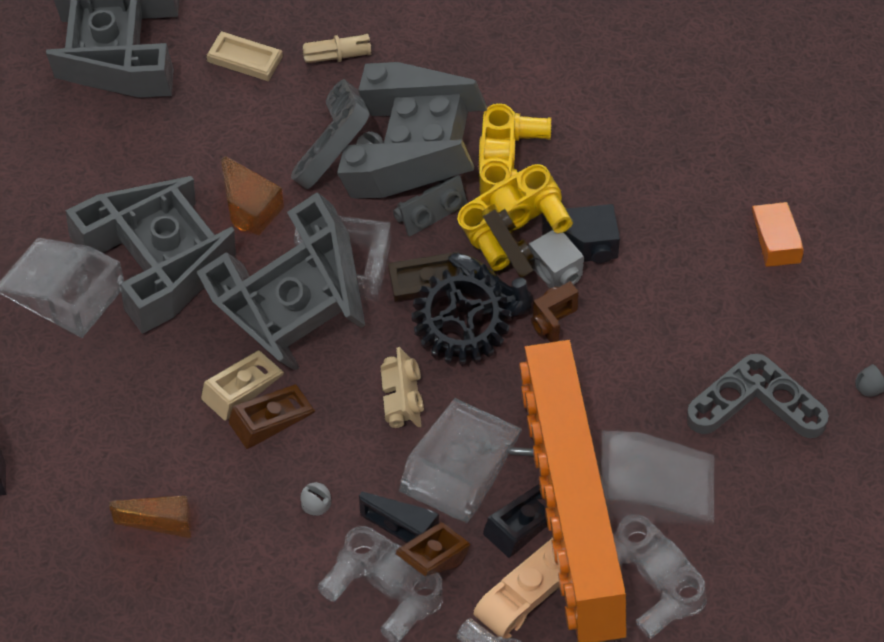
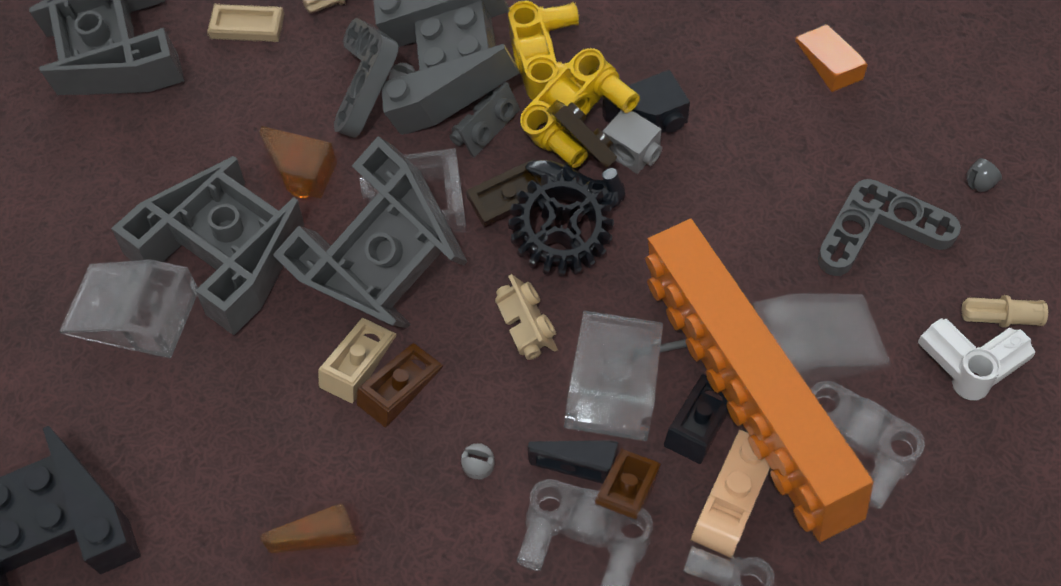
camera: 15 degrees left, 5 degrees up
(552, 307) = (644, 192): reddish brown bracket -> none
(802, 544) = (961, 357): none -> white piece
(835, 505) = (1005, 311): none -> tan axle

